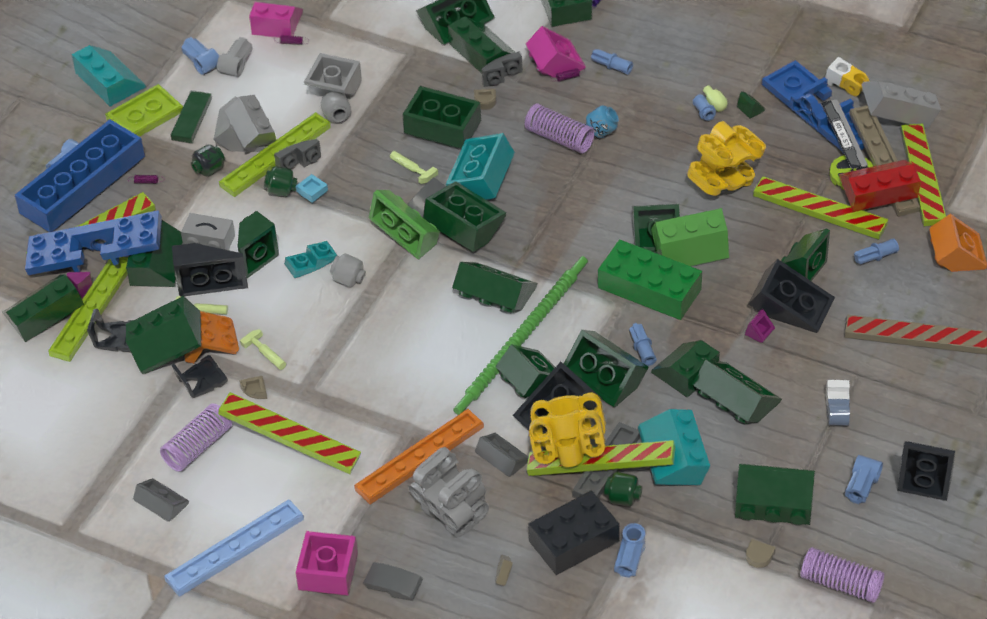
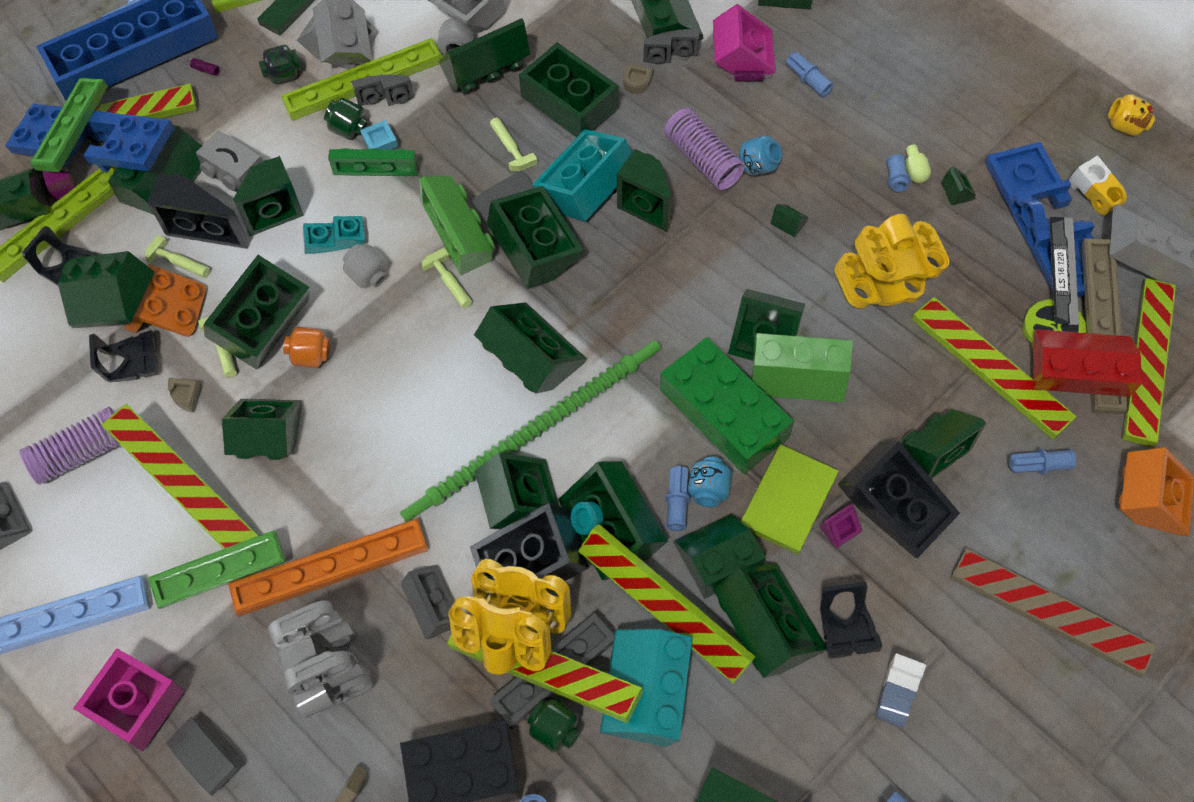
camera: 20 degrees right, 15 degrees up
(76, 237) = (69, 125): none -> bright green tile
(287, 317) = (256, 311): none -> dark green brick
(317, 204) = (373, 162): none -> green plate
(328, 388) = (261, 428): none -> dark green slope
(333, 331) = (307, 347): none -> orange head
(342, 478) = (217, 569): none -> bright green tile
(369, 111) = (486, 56): none -> dark green slope
(396, 253) = (436, 259): none -> yellowish green piece
(532, 164) = (644, 190): none -> dark green slope
(587, 369) = (586, 516): none -> teal tile
(639, 158) = (788, 219): none -> dark green slope
(660, 326) = (709, 482): none -> dark azure head
(663, 398) = (666, 603): none -> lime tile
(719, 321) = (789, 499): none -> lime tile
(796, 384) = (852, 635): none -> black piece
(851, 26) = (1131, 115): none -> yellow head

